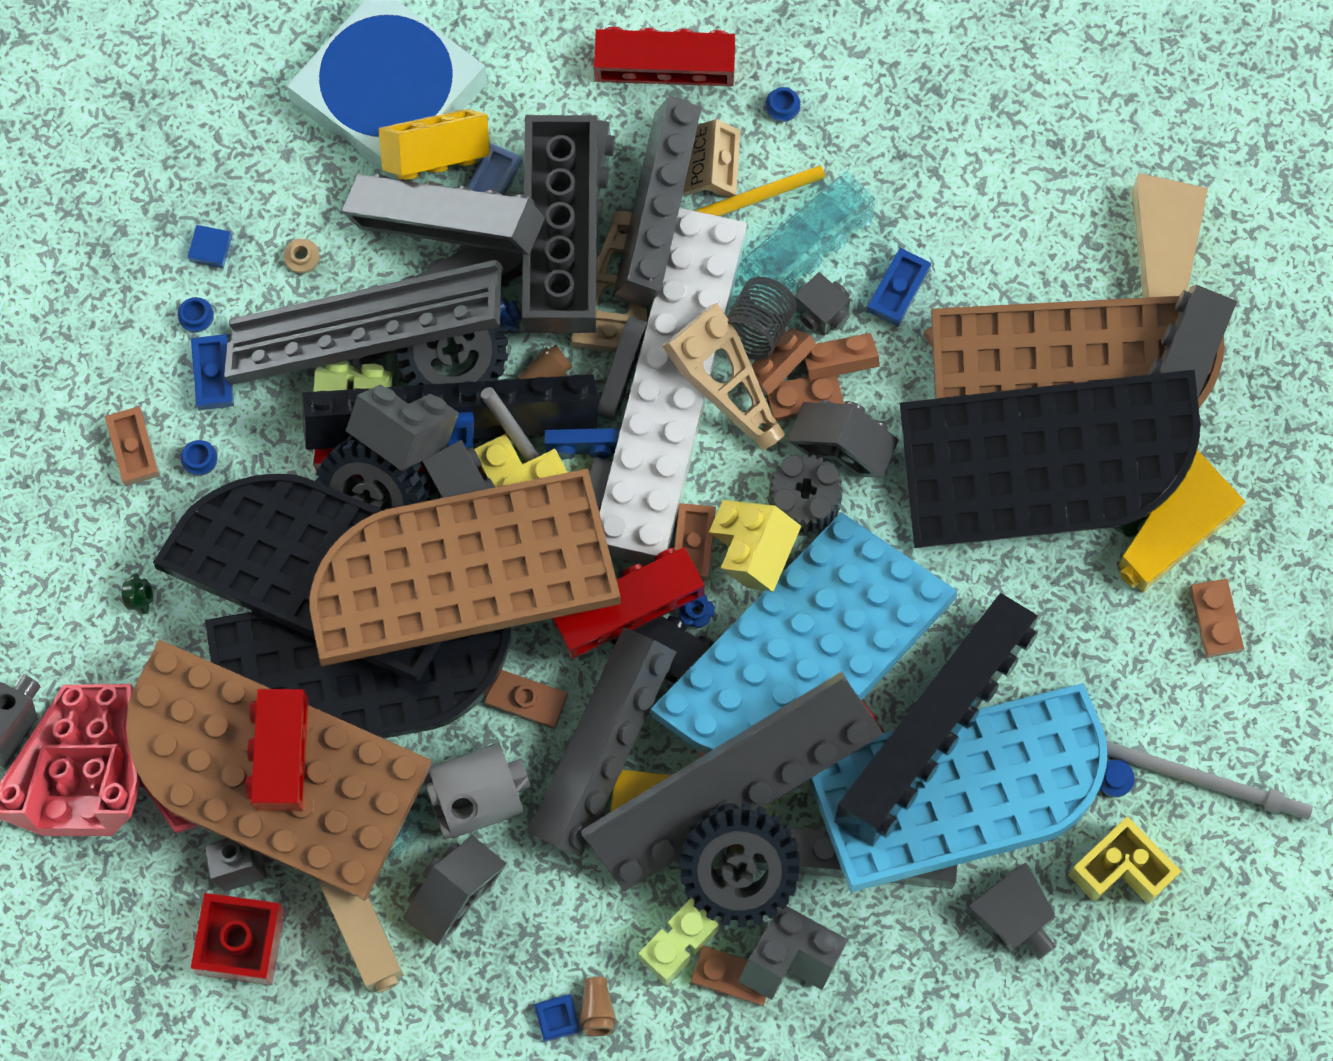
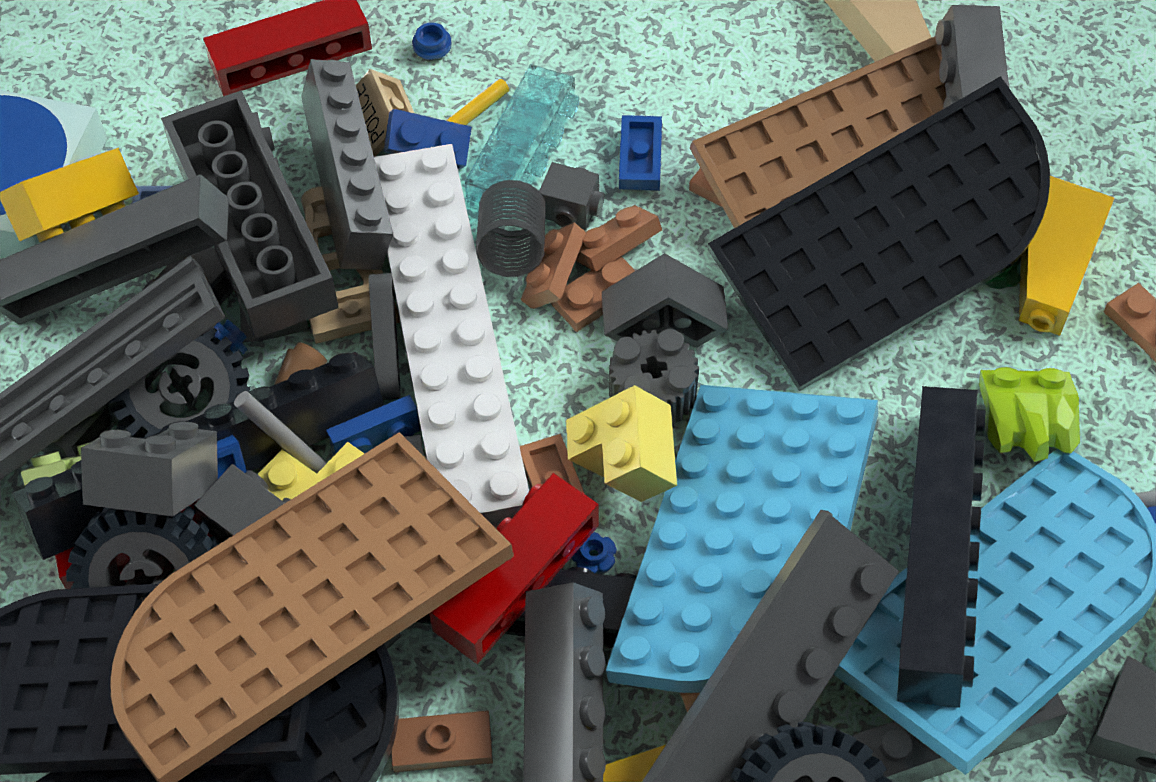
camera: 25 degrees left, 15 degrees down
(696, 344) = (455, 276): tan plate -> none
(733, 202) = (414, 132): none -> blue plate
(1076, 646) = (1030, 410): none -> lime plate

